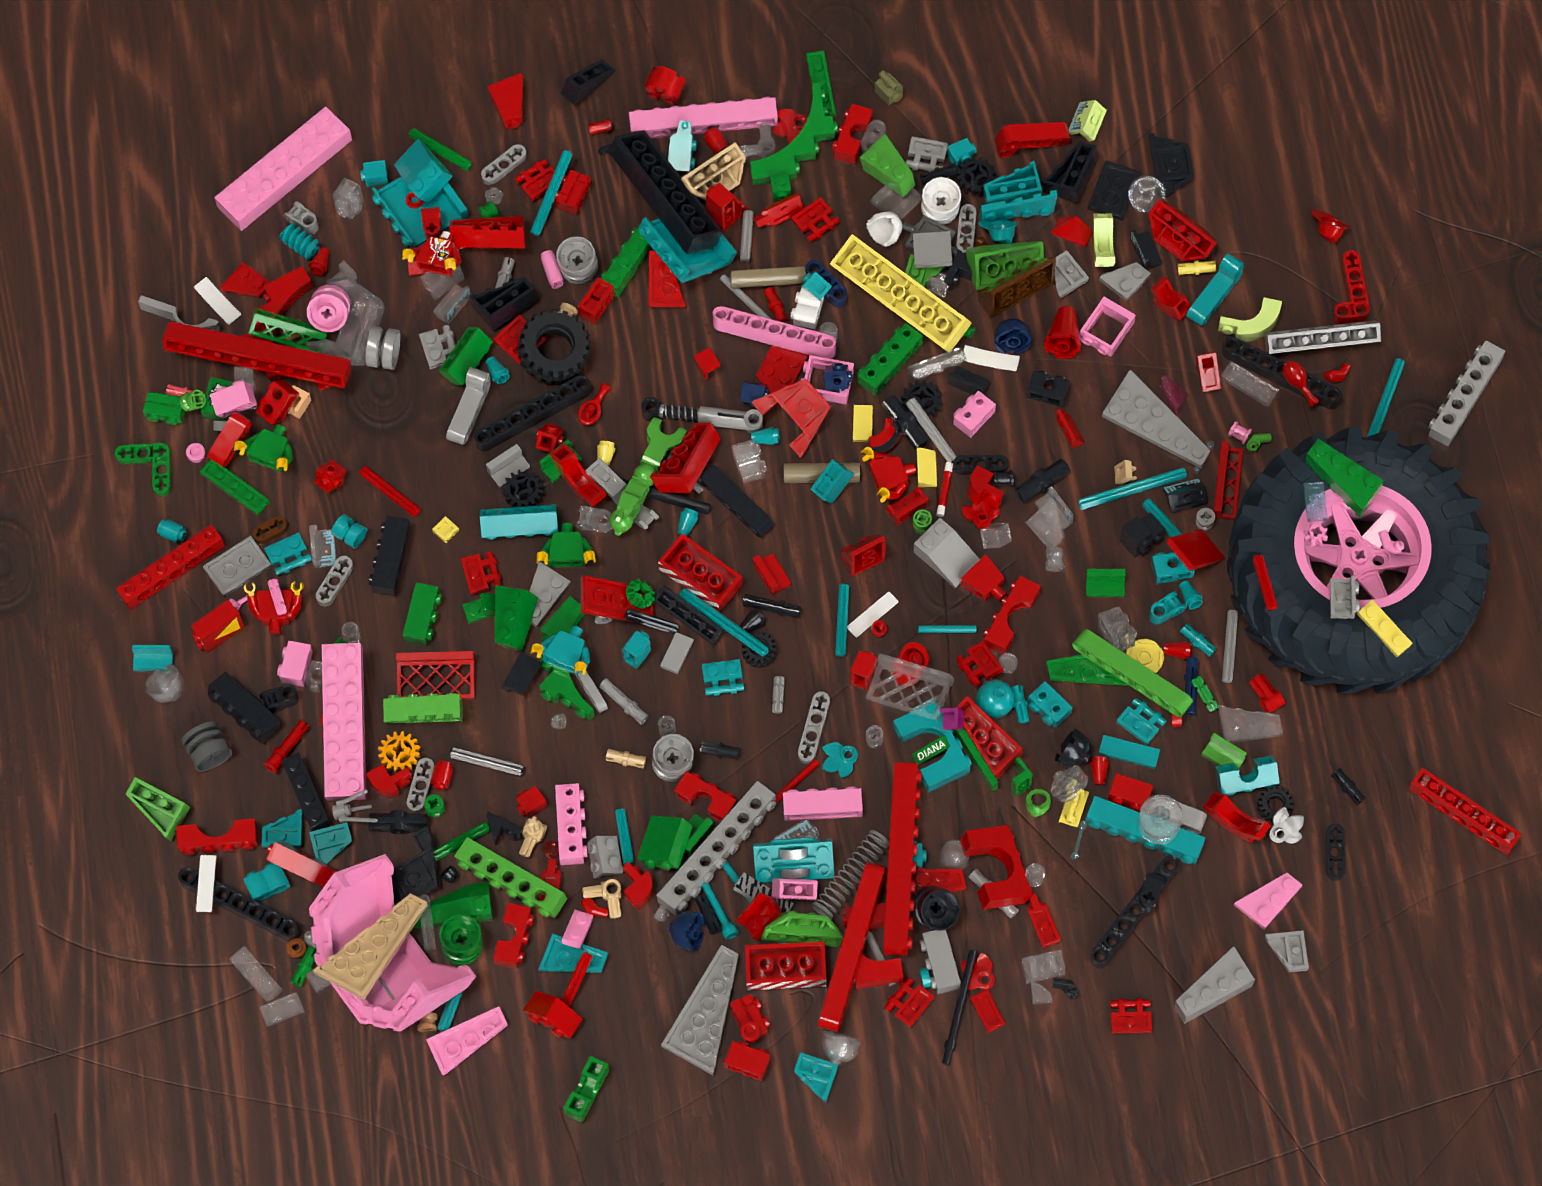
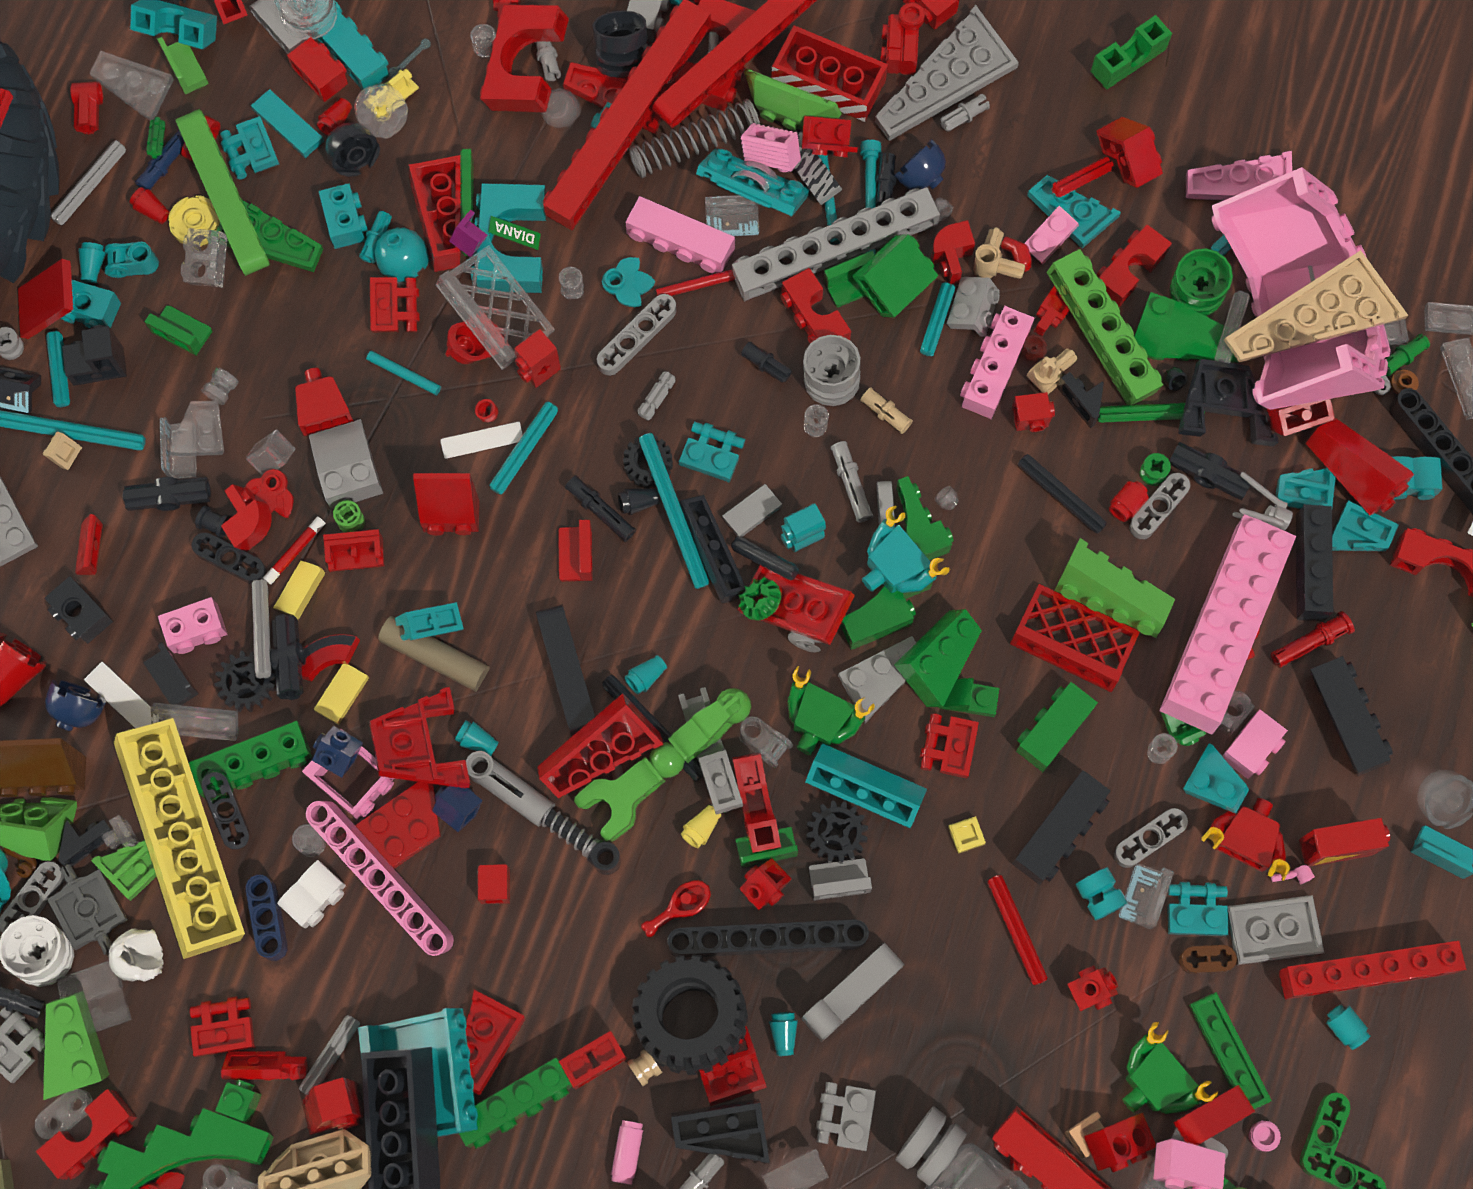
camera: 155 degrees left, 5 degrees up
(206, 746) = (1423, 682): dark grey wheel -> none
(277, 597) = (1245, 838): bright pink axle -> none
(278, 698) = (1300, 708): black piece -> none
(308, 628) = (1216, 781): none -> teal wing
(387, 785) = (1206, 524): red brick -> none
(391, 749) = (1159, 551): light orange gear -> none
(465, 354) = (819, 1073): green brick -> none
(521, 674) = (967, 578): black panel -> none
(574, 251) = (581, 1120): light grey wheel -> none
(680, 991) = (964, 113): none -> light grey axle
(700, 572) = (667, 590): red brick -> none
(738, 292) = (386, 955): light grey bar -> none
(748, 461) = (519, 714): clear brick -> none
(767, 277) = (339, 968): dark tan brick -> none
(775, 305) = (353, 924): red pin -> none
(815, 285) = (283, 909): teal bracket -> none
(888, 329) = (225, 831): none -> black beam
(888, 474) = (352, 597): red torso -> none
(932, 249) = (95, 882): light grey tile -> none
(1008, 662) = (357, 294): clear tile -> none
(1022, 595) = (290, 362): red arch -> none
(1023, 779) = (433, 137): green panel -> none
(1034, 810) = (439, 121): bright green piece -> none
(1198, 640) = (119, 207): teal pin -> none

